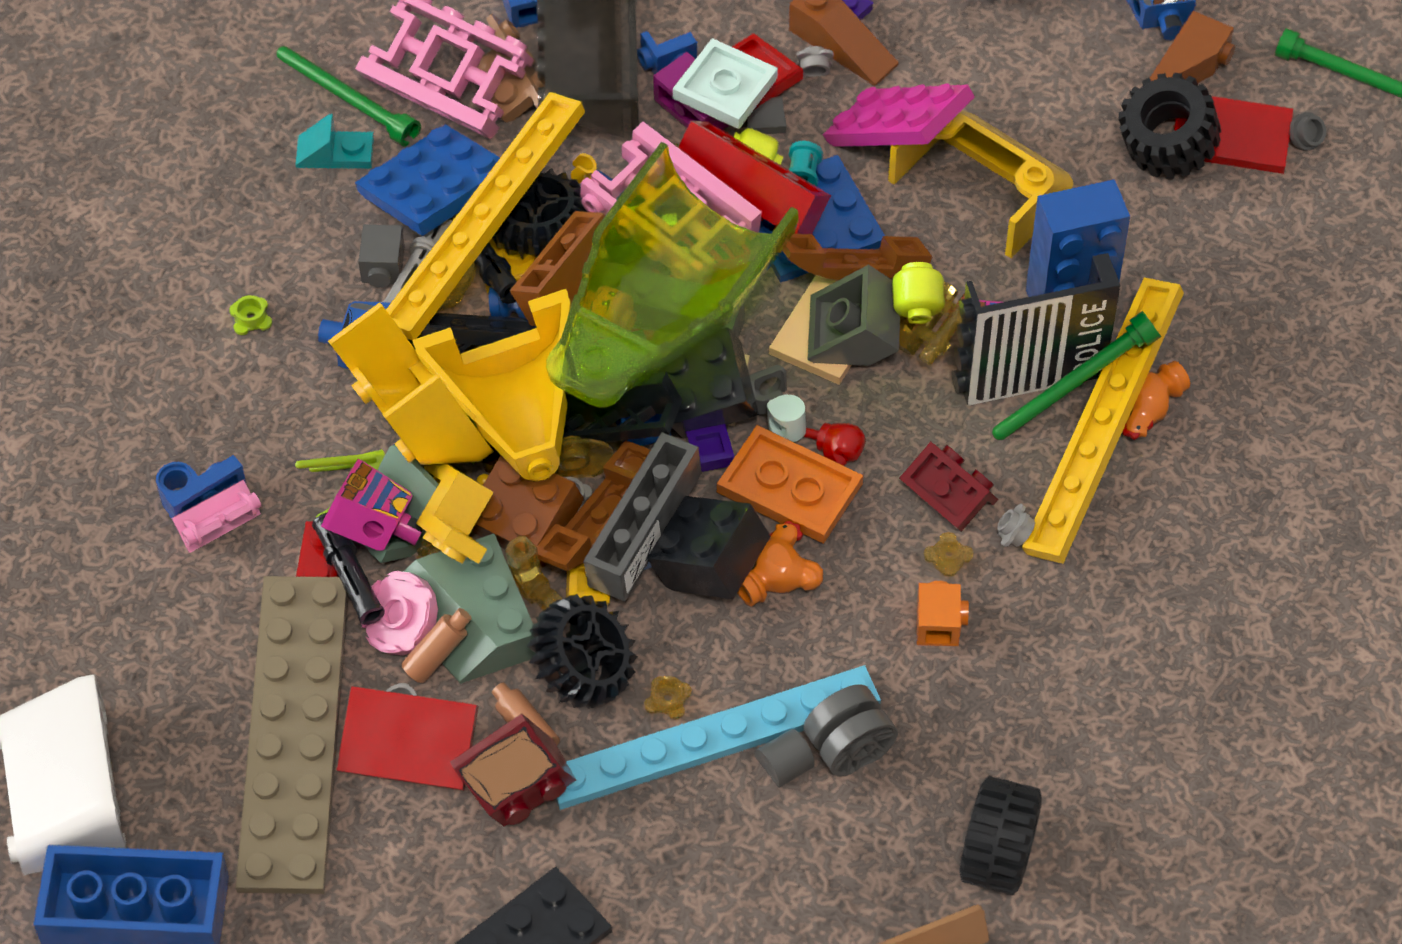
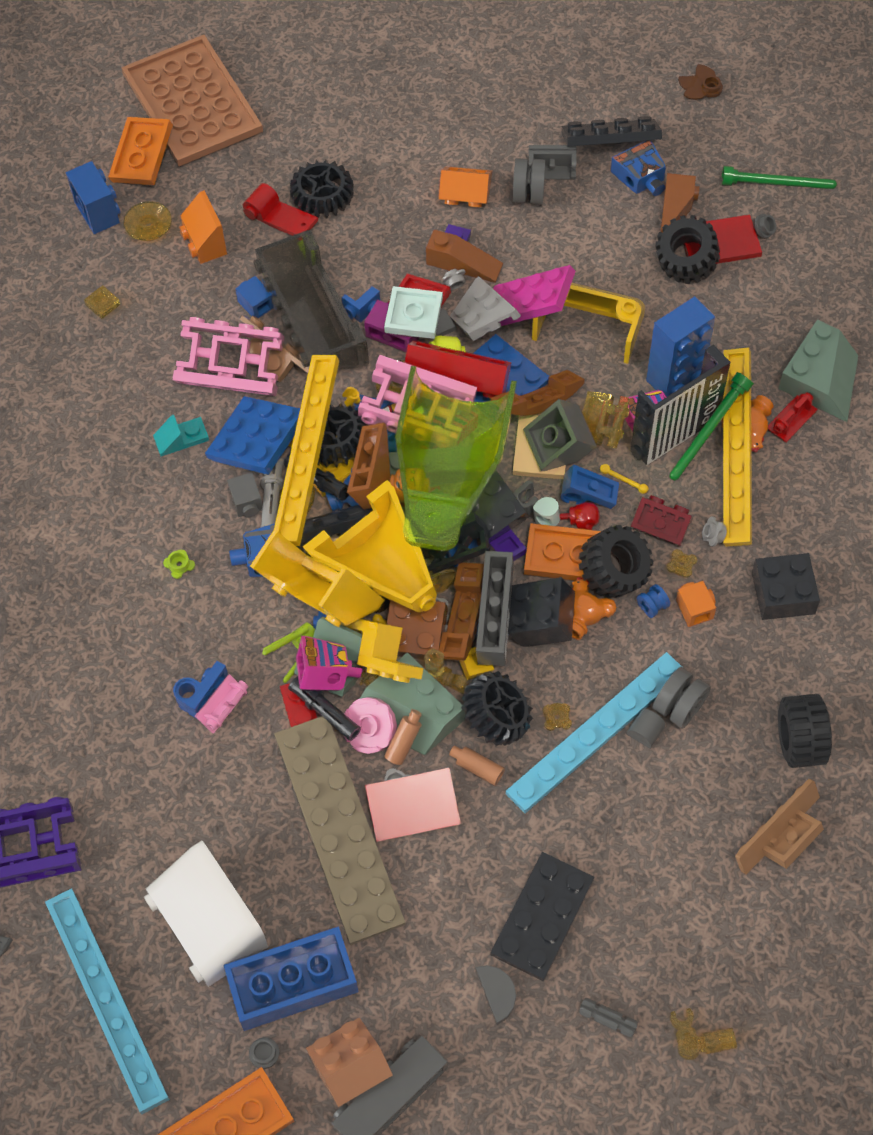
camera: 20 degrees left, 5 degrees up
(397, 124) = (213, 407): green piece -> none
(514, 771) = (494, 802): slope -> none
(802, 163) = (482, 344): teal bush -> none
(828, 111) = (482, 310): none -> light grey wing
(862, 400) = (586, 485): none -> blue plate
(875, 505) = (633, 557): none -> black tyre
(880, 589) = (653, 601): none -> blue wheel
(918, 292) = (594, 405): neon yellow head -> none
(944, 434) = (605, 469): none -> yellow hinge
(1079, 635) = (785, 586): none -> black brick
(1213, 410) = (793, 417): none -> red hinge
(1289, 359) = (824, 368): none -> sand green wedge

